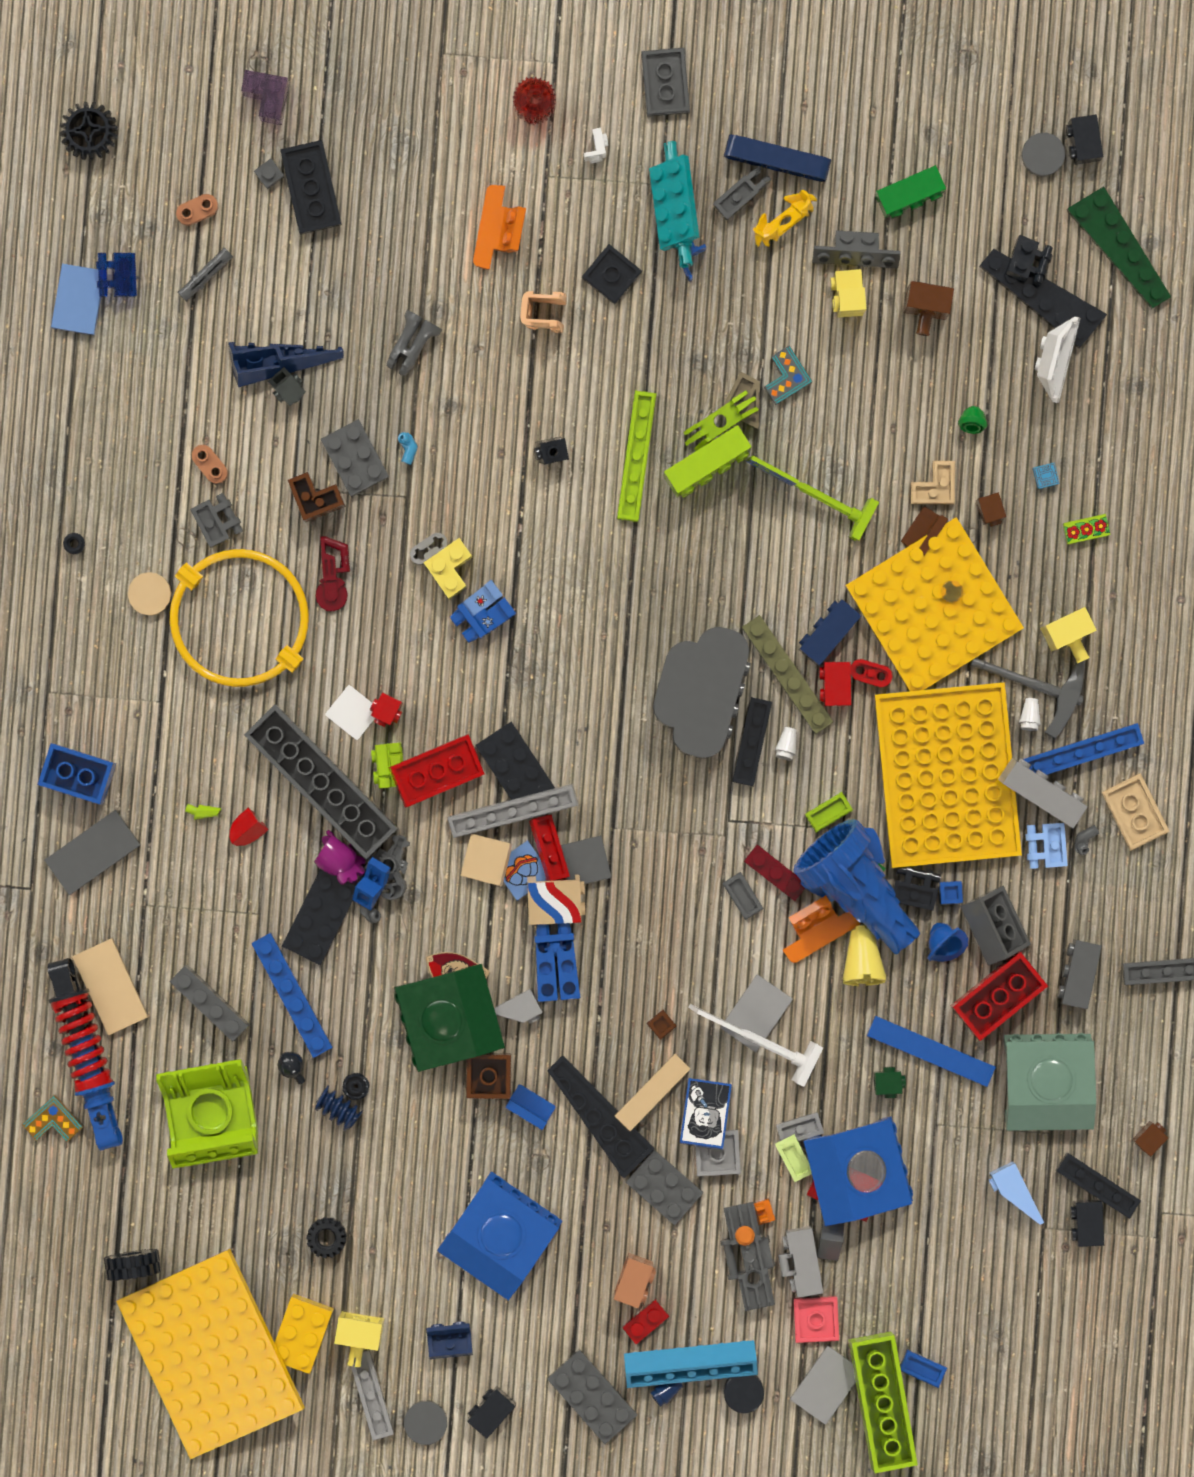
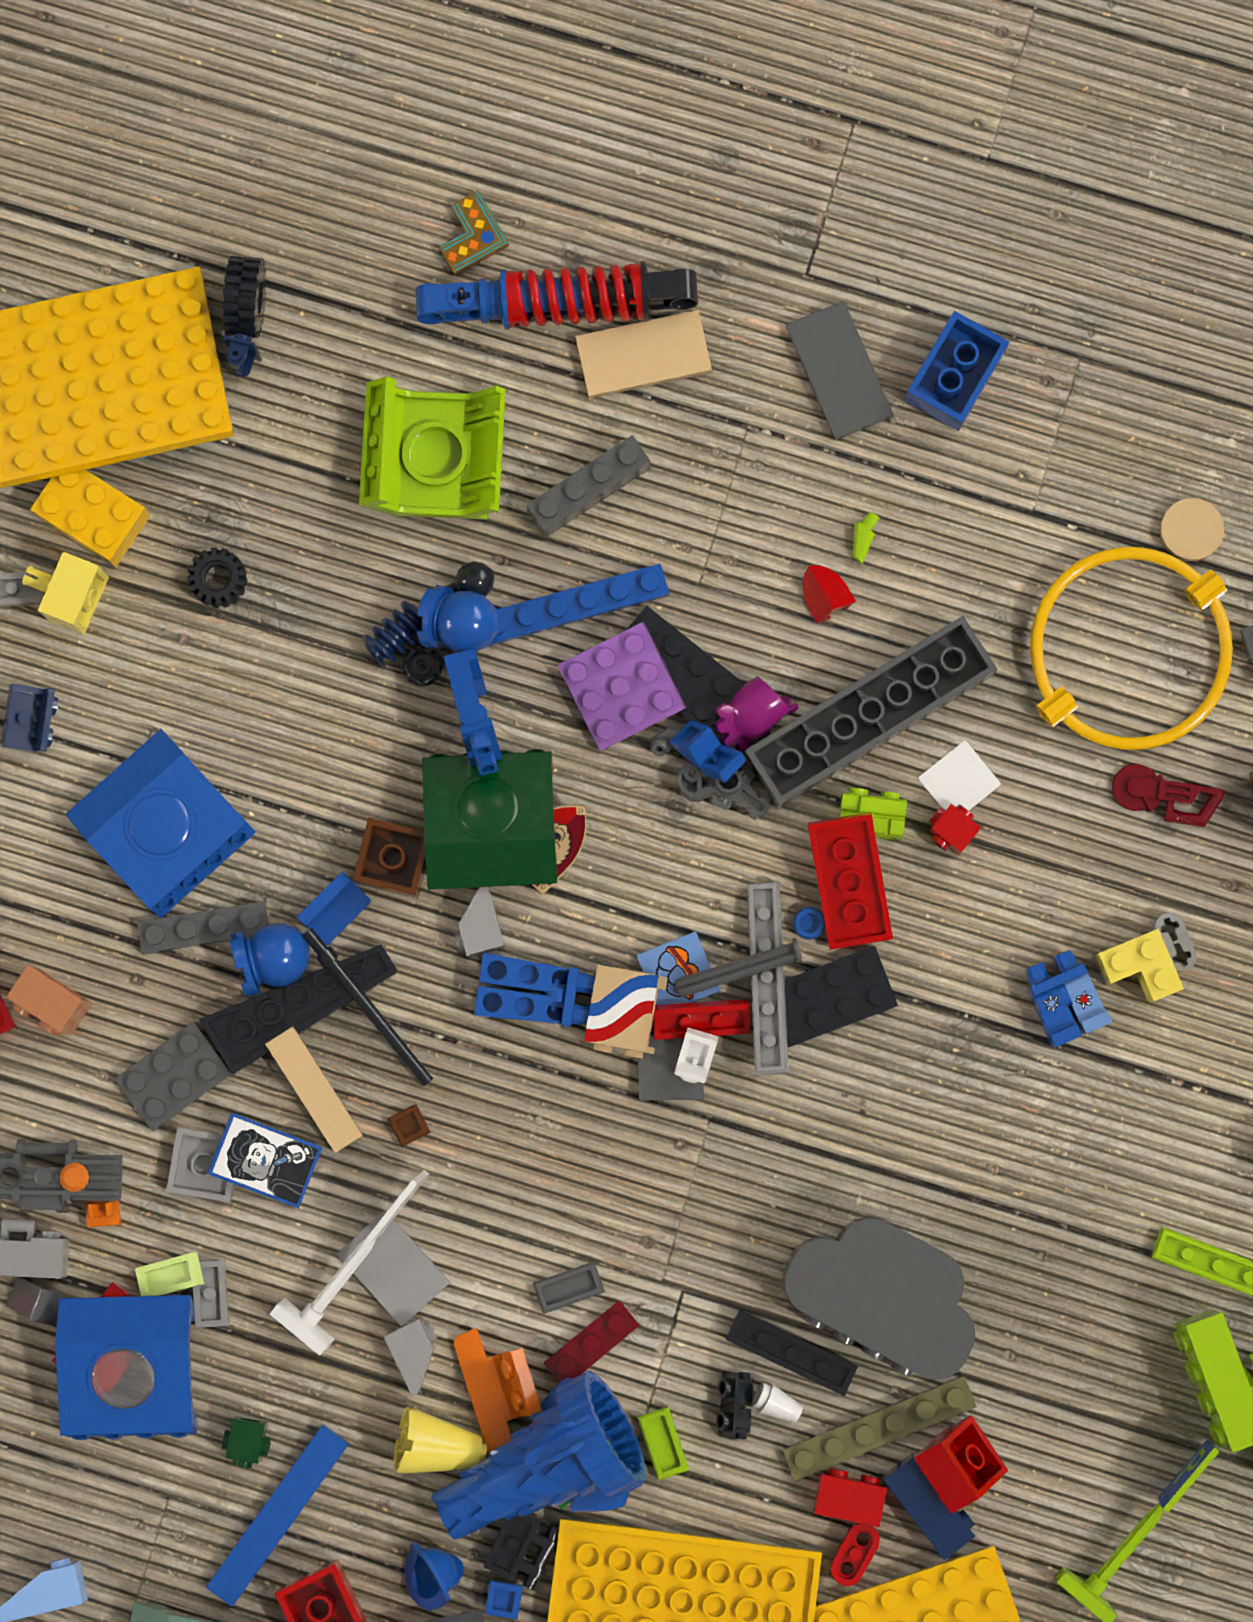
camera: 105 degrees right, 5 degrees down
(171, 1257) = (241, 353): none -> dark blue hinge
(321, 1070) = (456, 619): none -> blue tile
(340, 950) = (621, 686): none -> medium lavender plate
(391, 1039) = (476, 725): none -> blue hips
(470, 791) = (809, 923): none -> blue tile
(486, 859) = (704, 924): tan tile -> none
(511, 830) = (739, 969): none -> dark grey axle
(562, 1190) = (201, 927): none -> dark grey plate
(565, 1102) = (328, 957): none -> black bar
(572, 1140) = (272, 956): none -> blue tile
(574, 846) = (696, 1056): none -> white bracket
(798, 617) = (961, 1464): none -> red brick
(803, 770) = (733, 1420): none -> black hinge
(807, 987) = (412, 1351): none -> light grey slope

